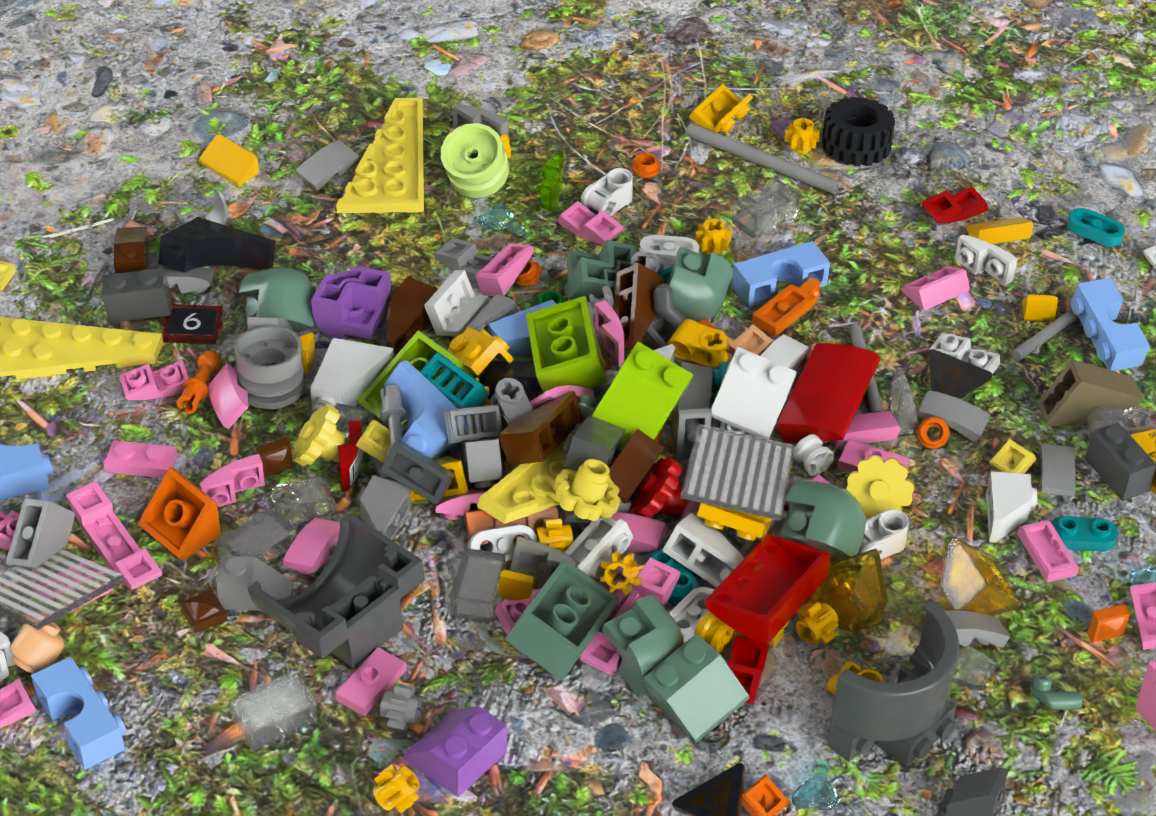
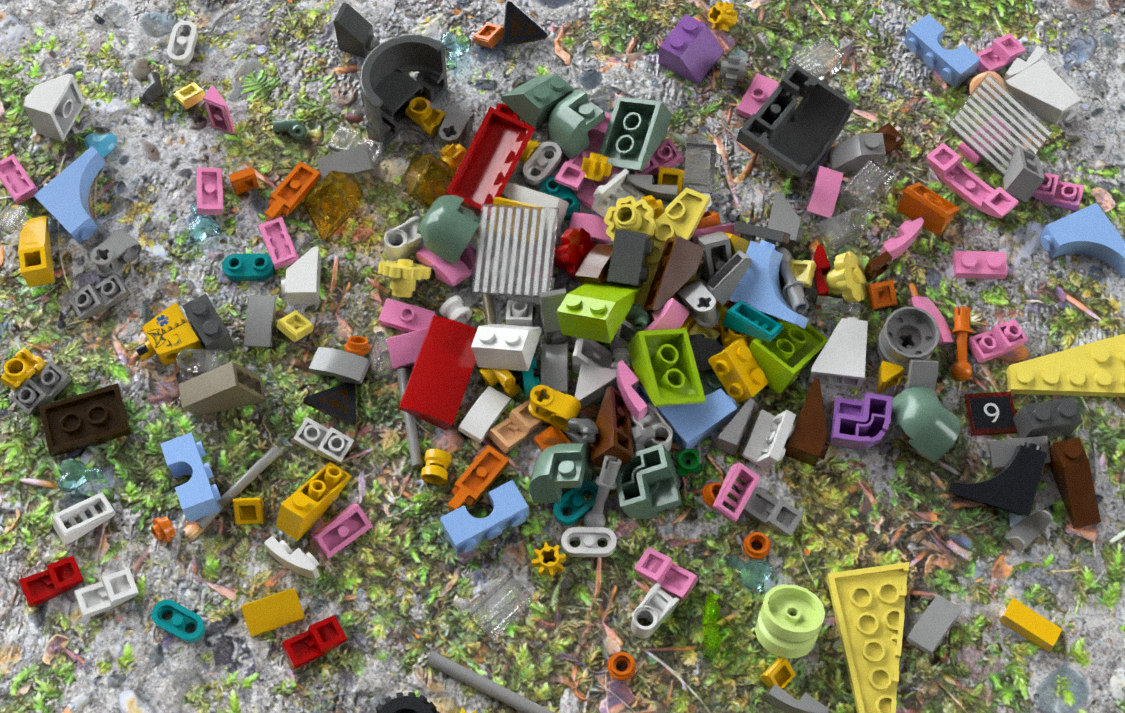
camera: 175 degrees right, 20 degrees up
(276, 430) = (881, 294): none -> orange tile
(490, 235) = (762, 540): none -> orange plate
(816, 664) = (455, 127): none -> light grey piece
(834, 317) = (436, 466): none -> yellow wheel
(971, 299) = (311, 501): none -> yellow slope
(1039, 609) = (292, 191): none -> orange hinge
(1130, 292) = (162, 529): none -> orange plate

